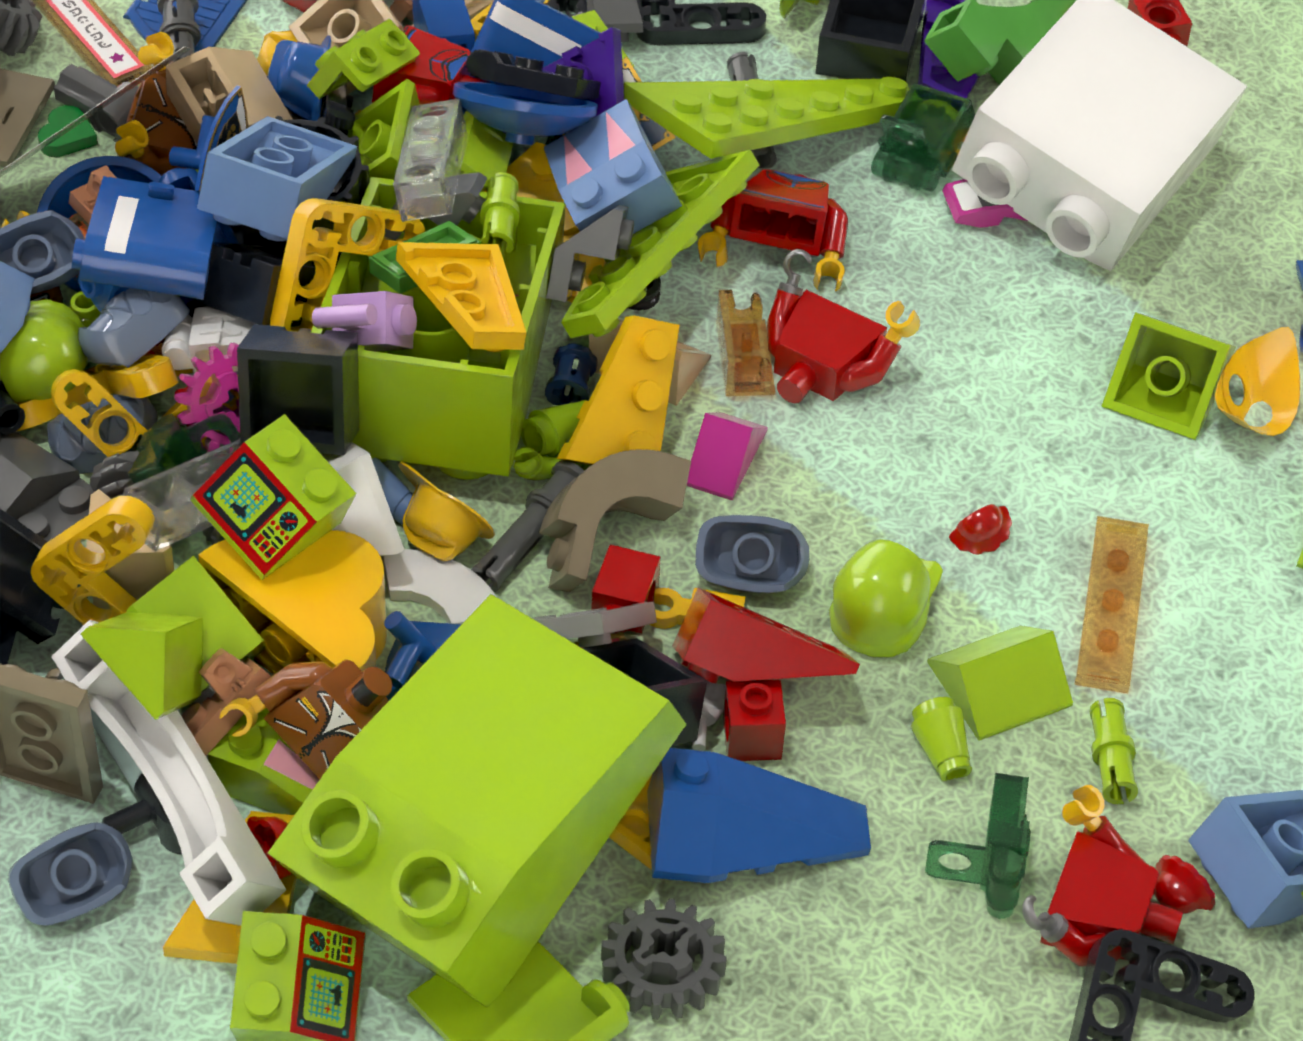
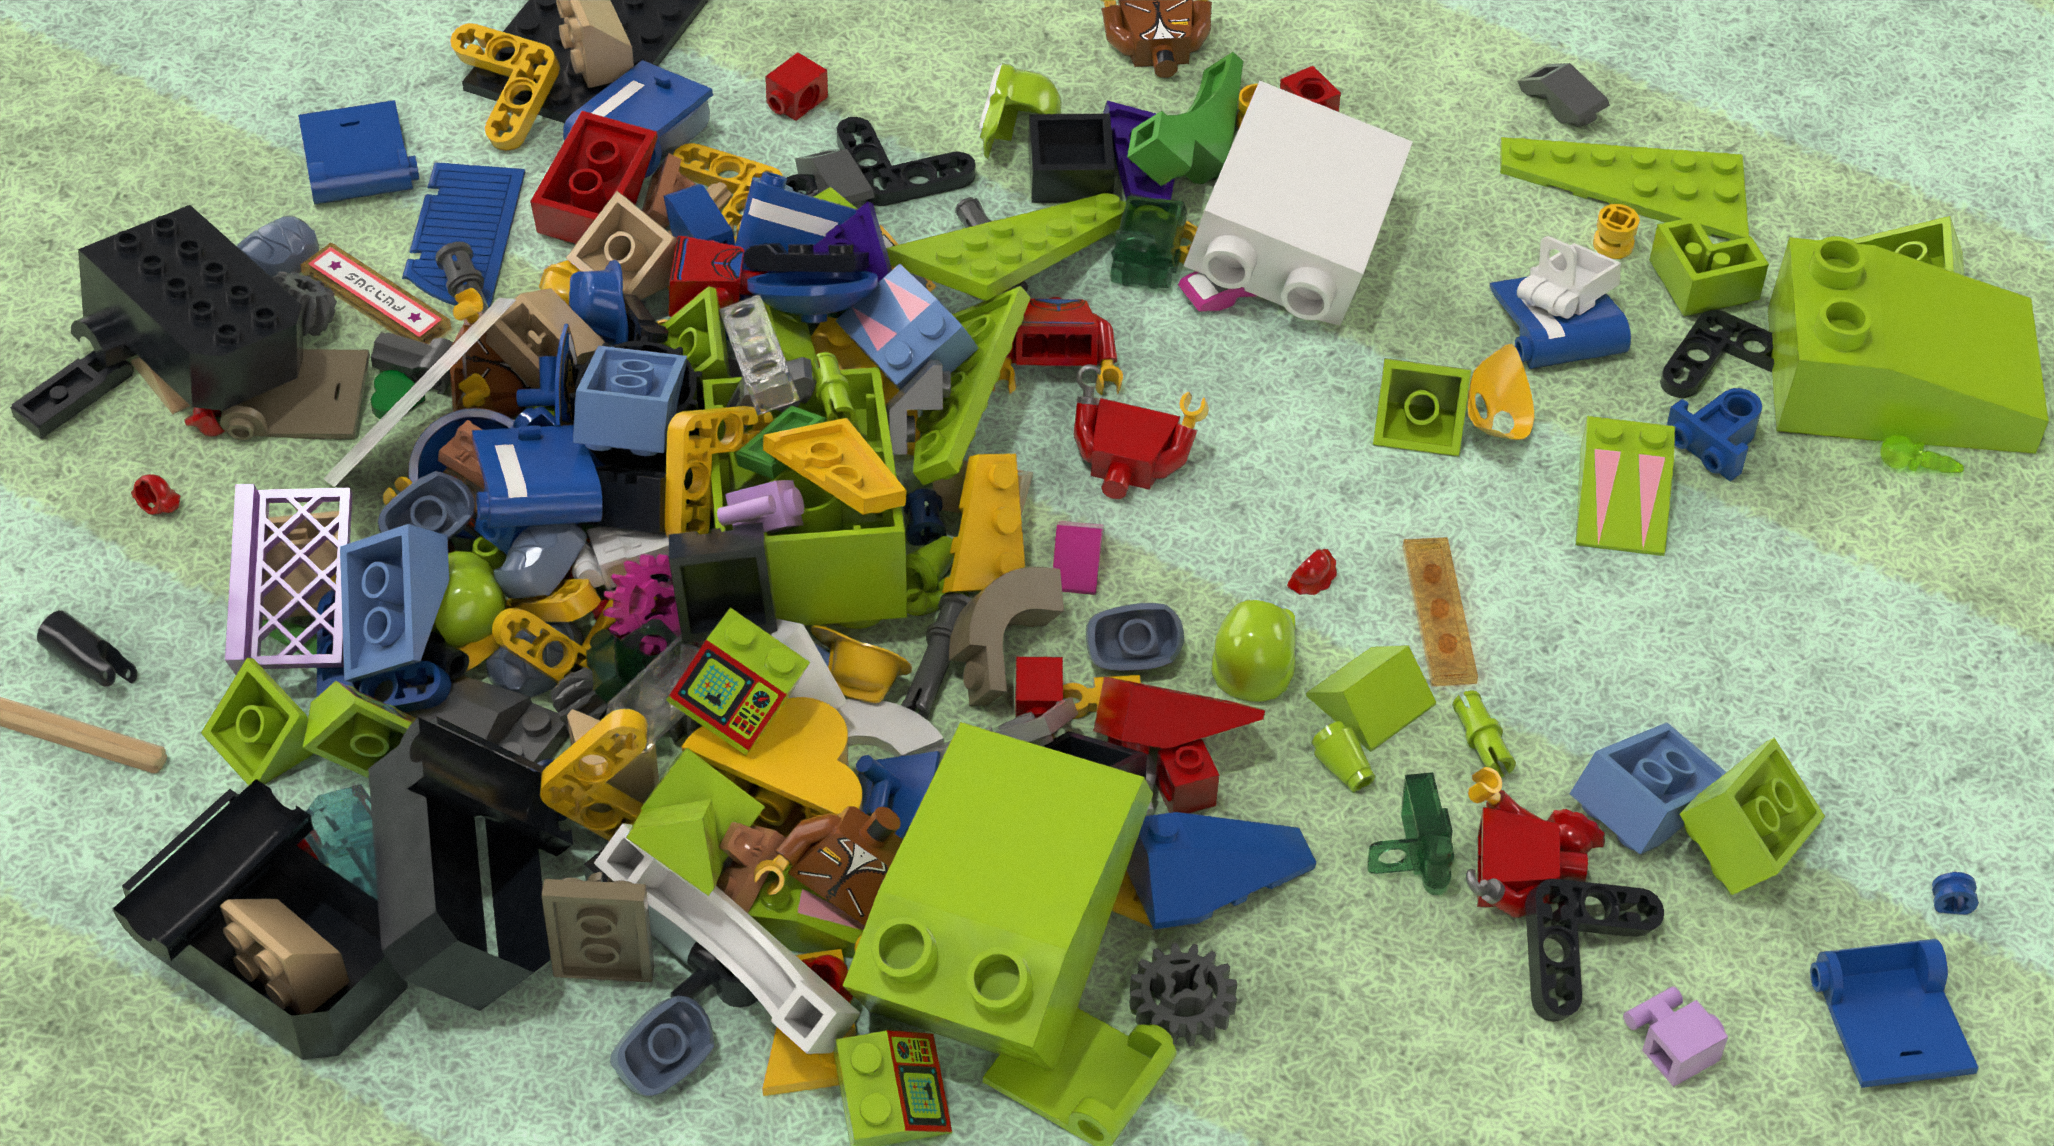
camera: 15 degrees left, 0 degrees up
(363, 59) = (659, 274): lime bracket -> none
(743, 347) = (1060, 460): clear orange hinge -> none

